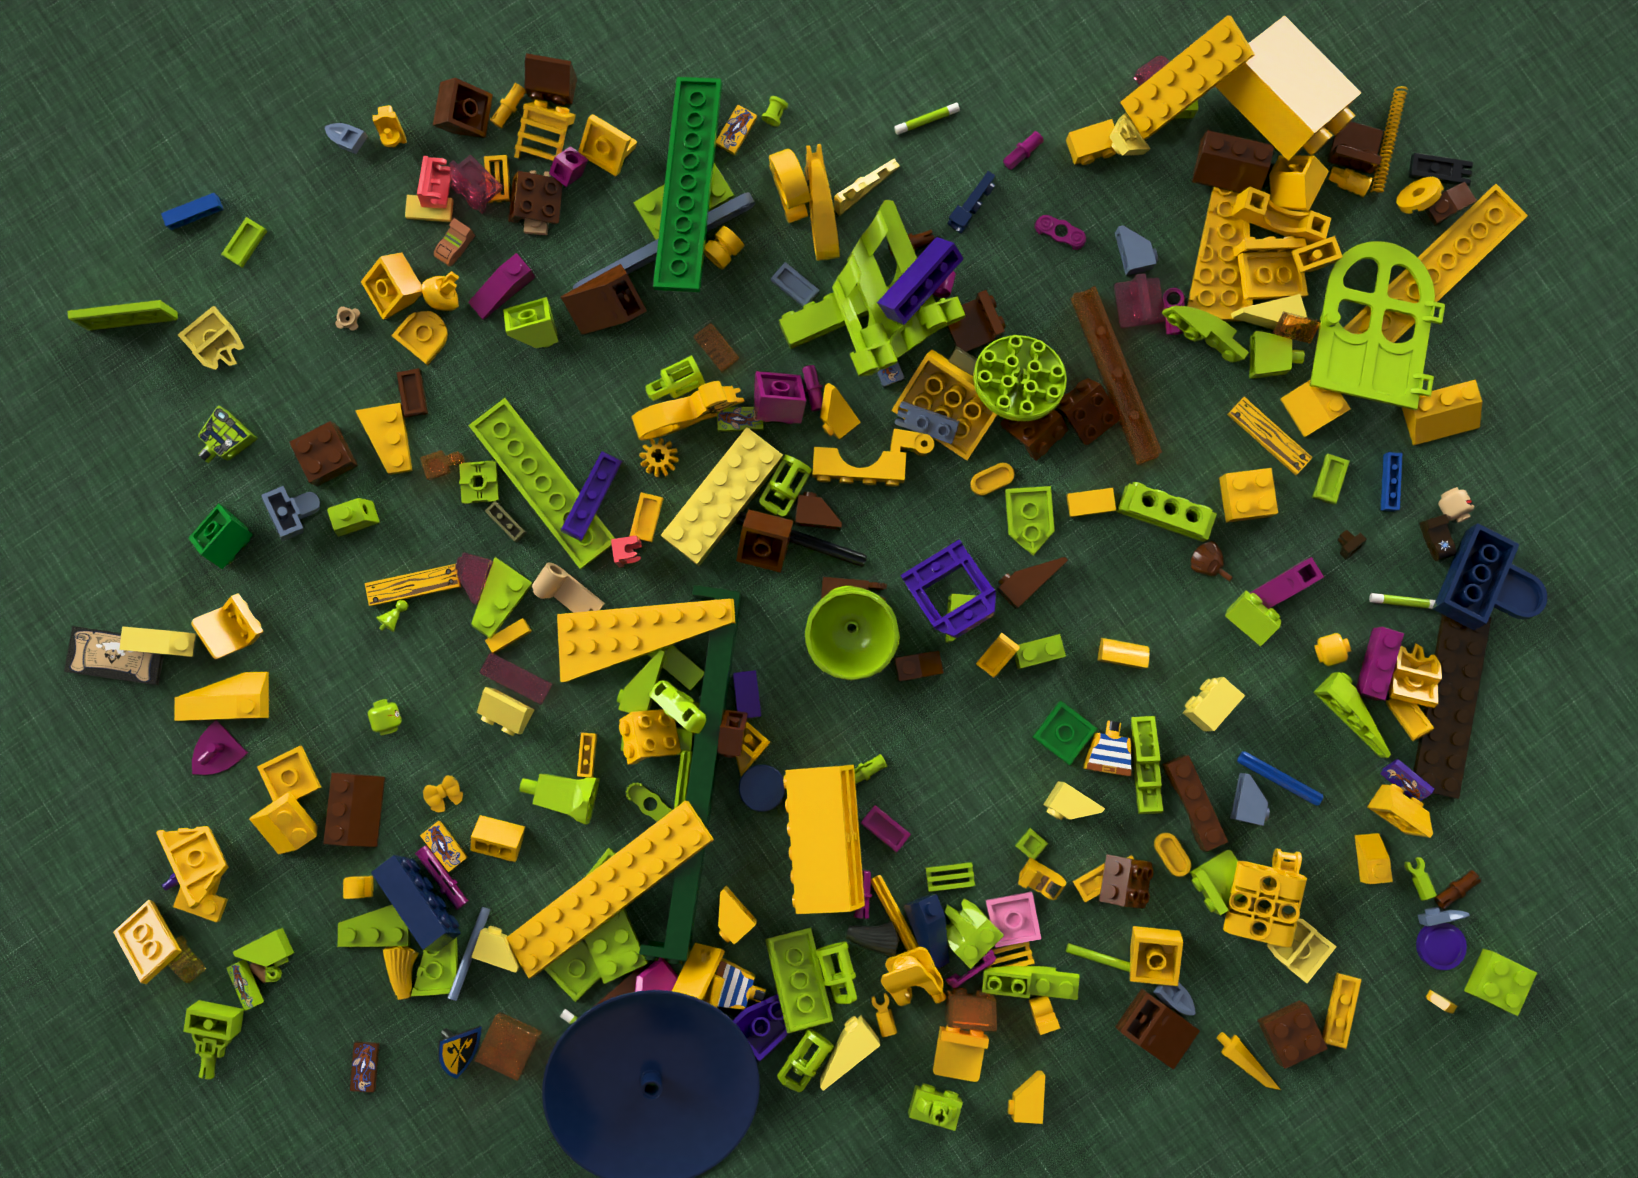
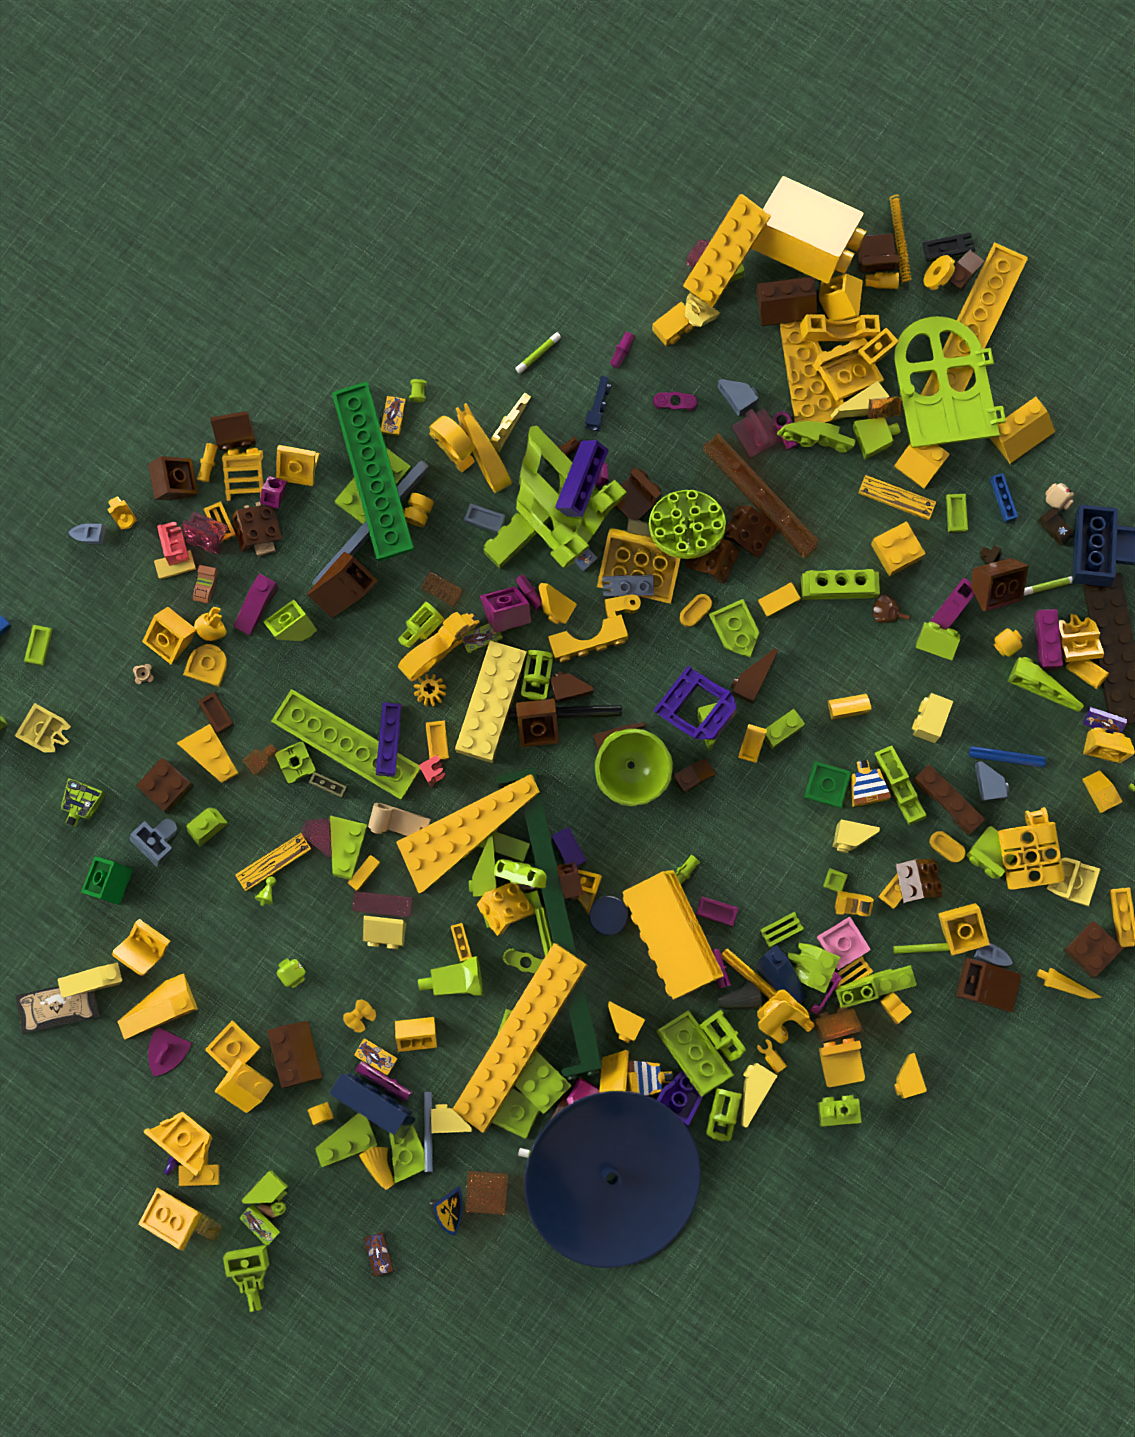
camera: 15 degrees left, 5 degrees down
(1349, 579) = (999, 583): none -> reddish brown slope

